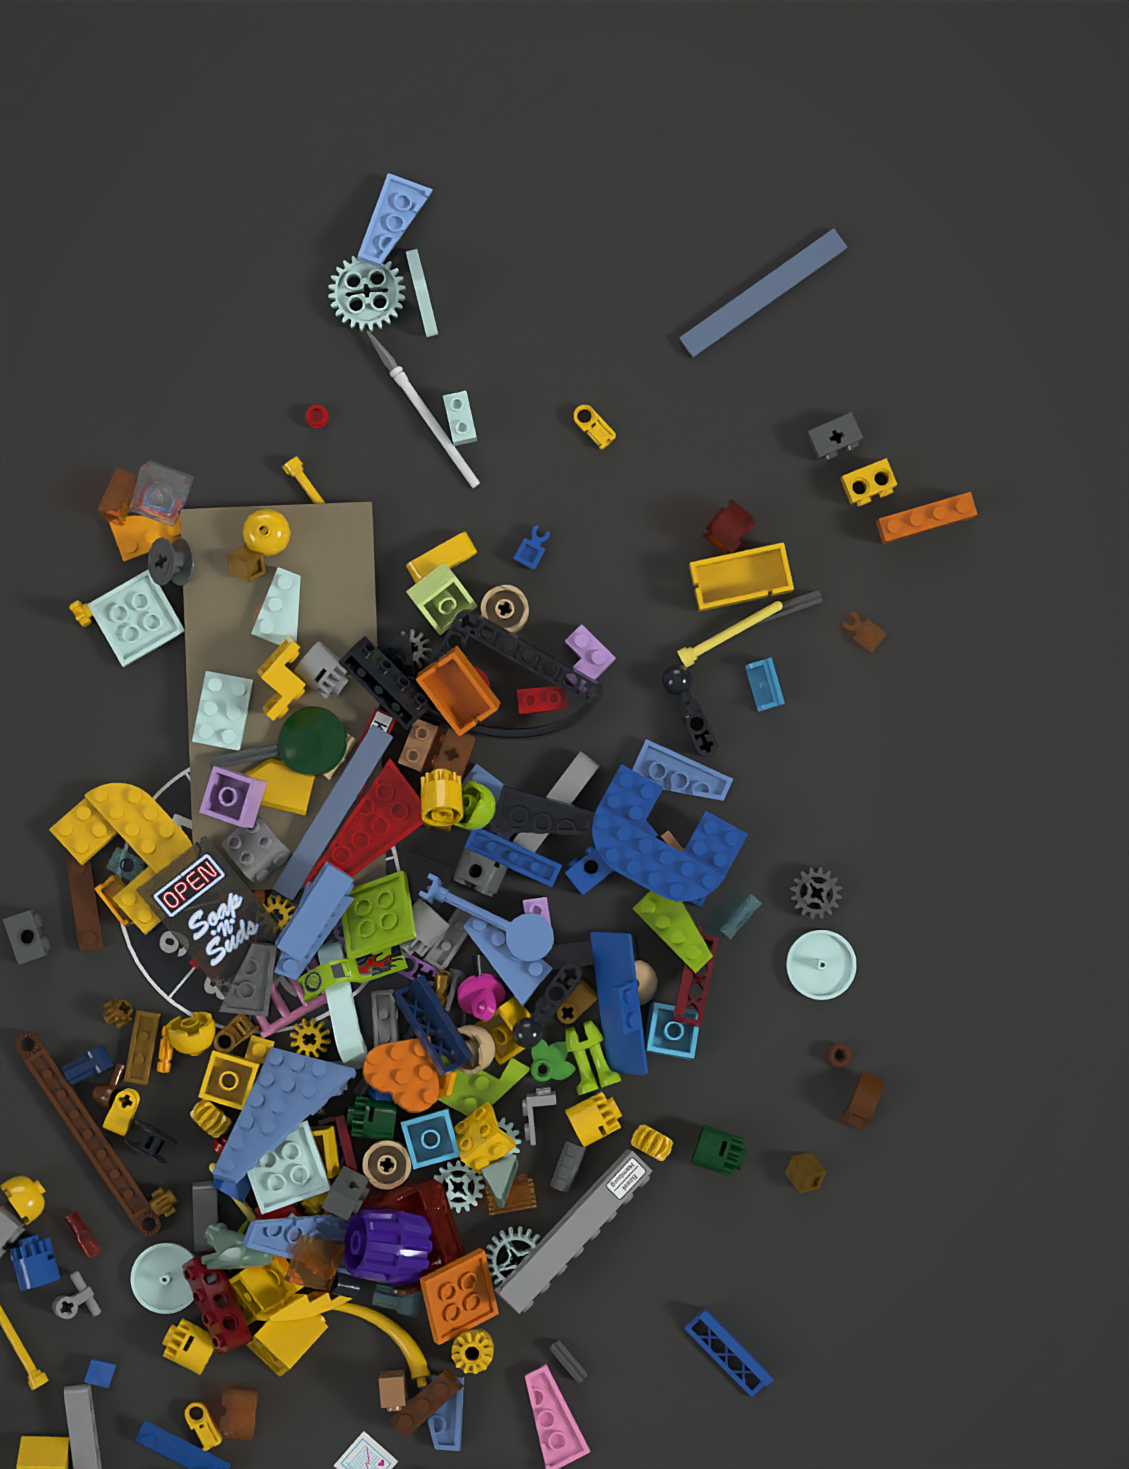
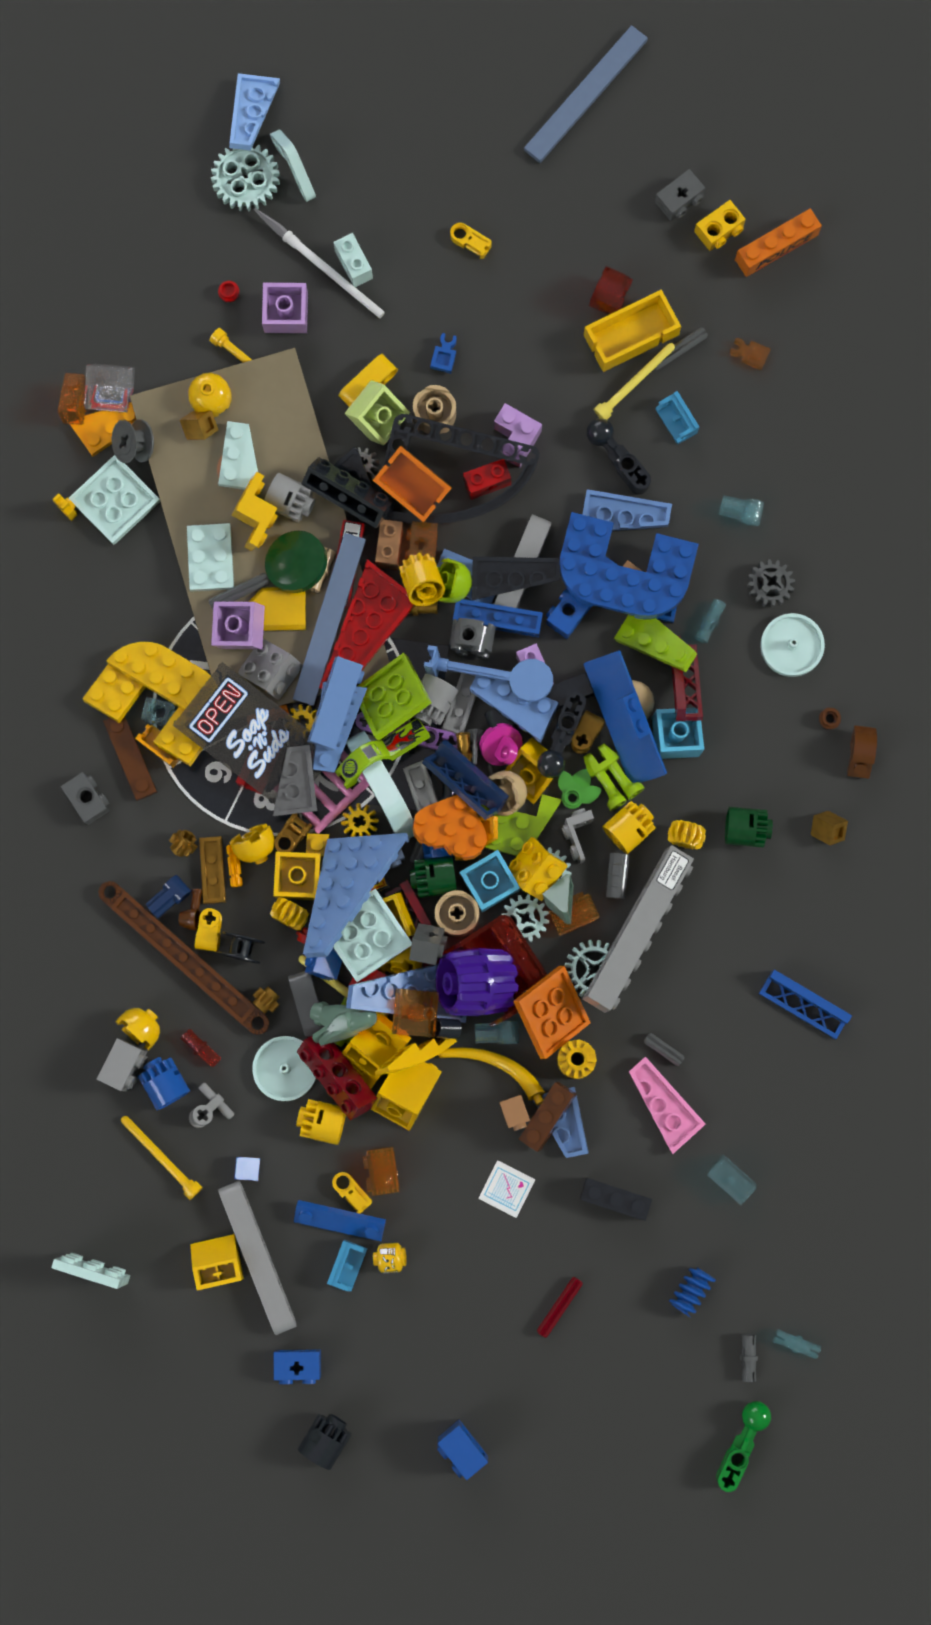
camera: 10 degrees left, 5 degrees down
(372, 454) = (285, 307): none -> lavender brick
(812, 806) = (747, 510): none -> clear light blue piece

